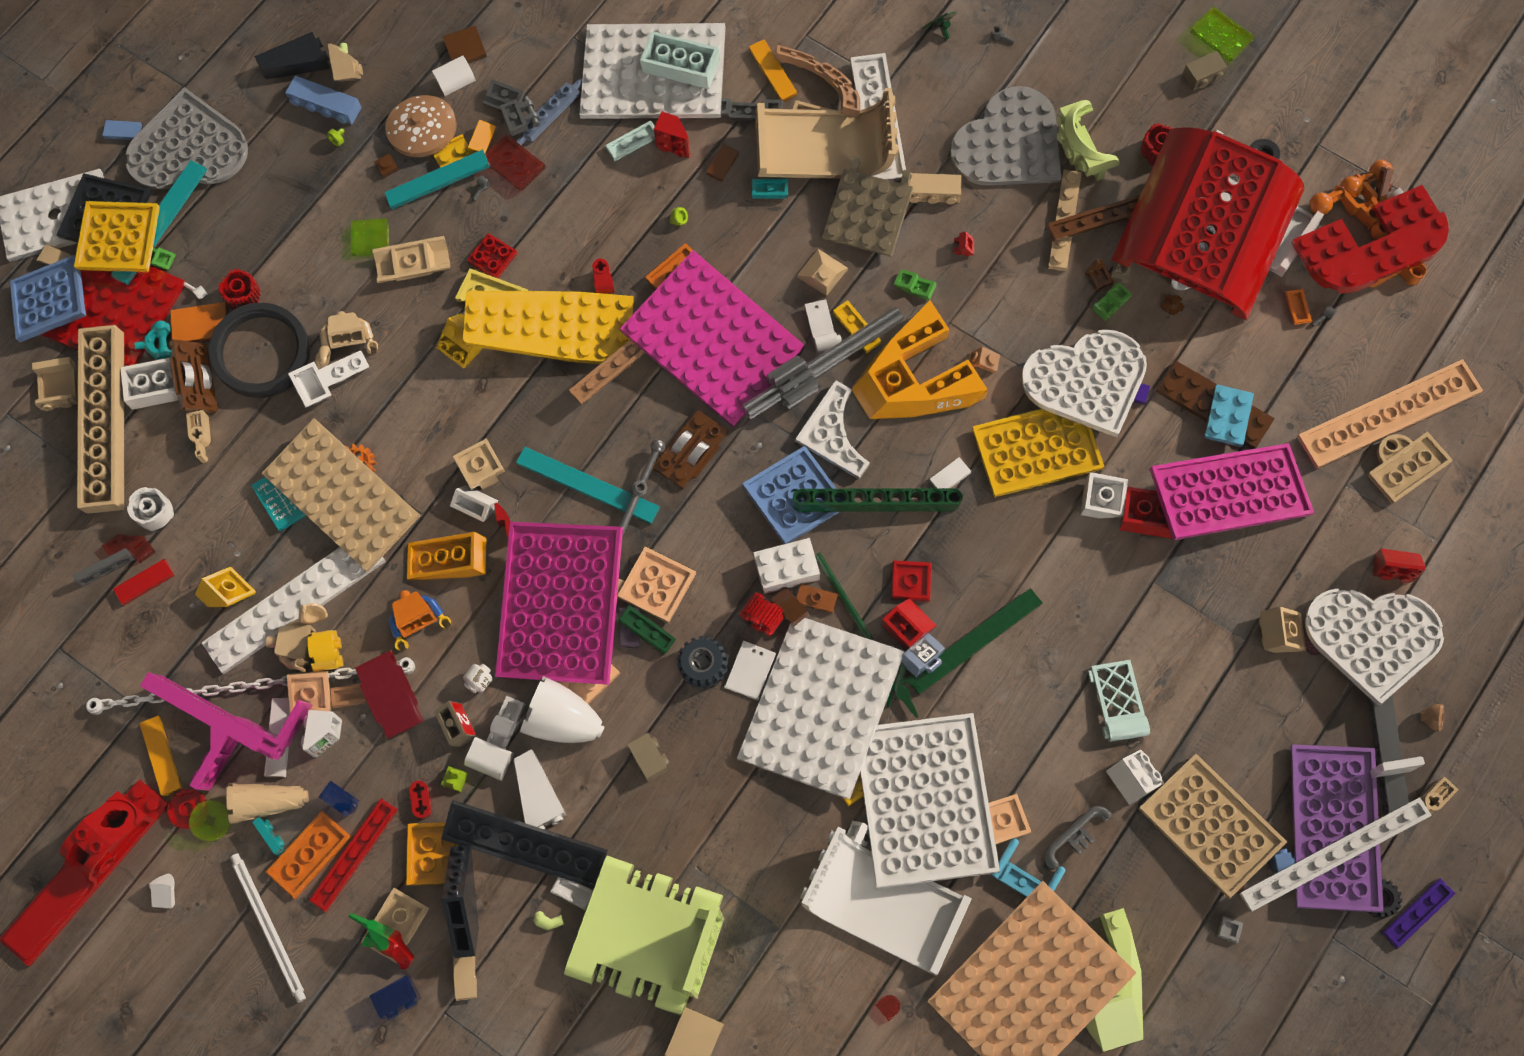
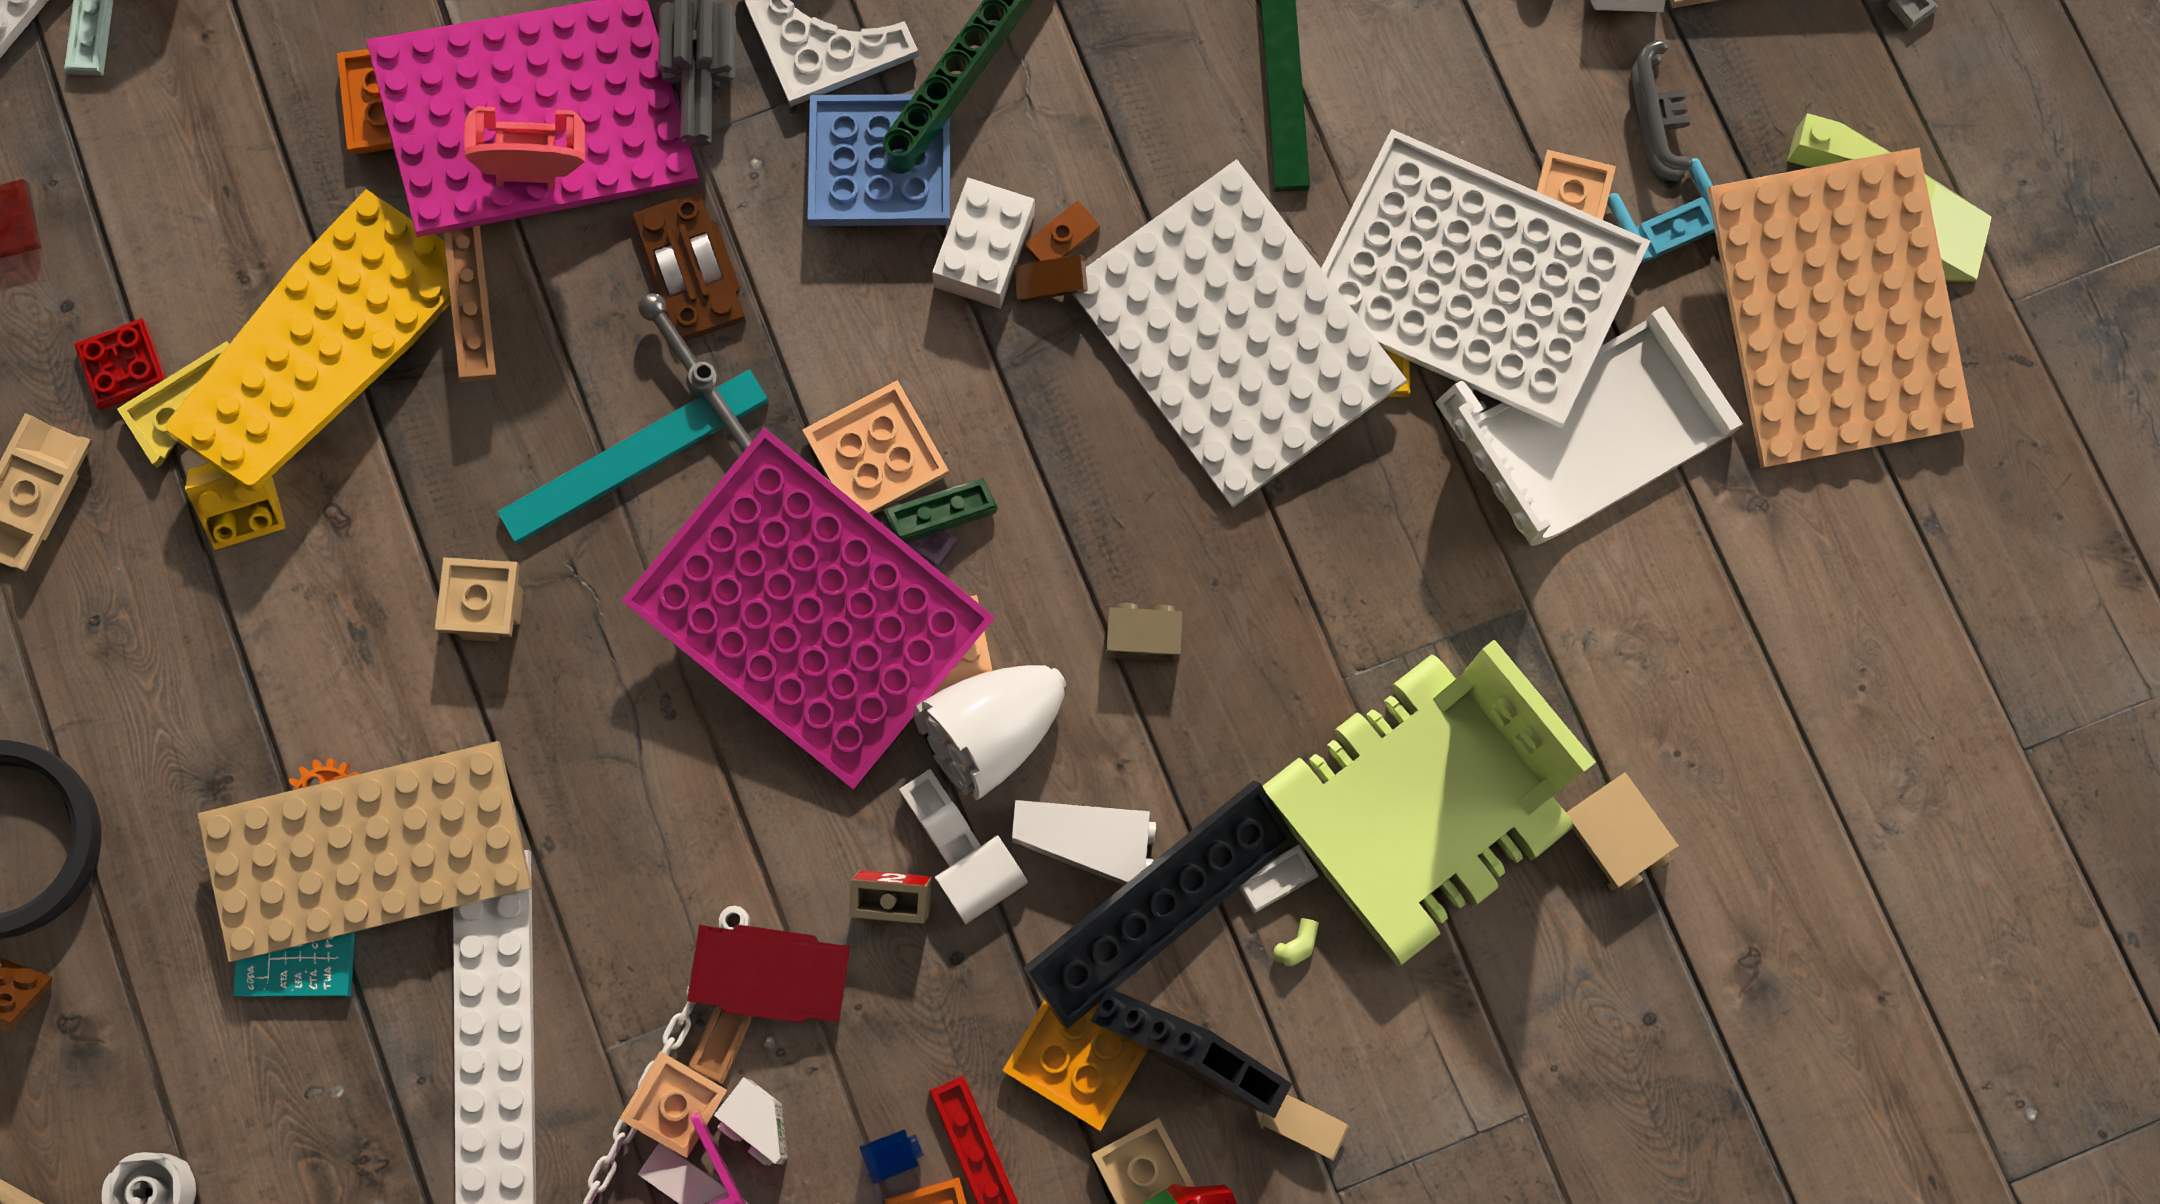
camera: 65 degrees left, 5 degrees up
(199, 432) = (63, 1033): tan piece -> none
(223, 588) = (389, 1147): yellow slope -> none
(292, 640) = (563, 1073): tan torso -> none
(314, 383) = (130, 781): white plate -> none
(324, 650) = (620, 1035): yellow brick -> none
(341, 331) = (72, 678): tan torso -> none
(412, 614) = (659, 856): orange torso -> none
(425, 799) = (970, 1038): red beam -> none
(447, 557) = (597, 747): light orange slope -> none
(454, 779) = (975, 955): lime tile -> none
(473, 503) = (535, 649): white brick -> none
(477, 678) = (837, 818): white head -> none
(502, 517) = (599, 616): red slope -> none
(602, 279) = (297, 213): red piece -> none
(678, 216) = (281, 37): lime tile -> none
(683, 344) = (524, 149): none -> coral piece
(702, 662) = (1051, 459): black wheel -> none
(750, 670) = (1107, 401): white container -> none
(762, 614) = (1038, 323): red brick -> none
(889, 1006) = (1737, 526): clear red tile -> none
(898, 685) = (1290, 208): dark green piece -> none
(908, 623) = (1197, 133): red slope -> none
(911, 580) = (1128, 87): red tile -> none
(922, 655) = (1257, 140): sand blue piece -> none

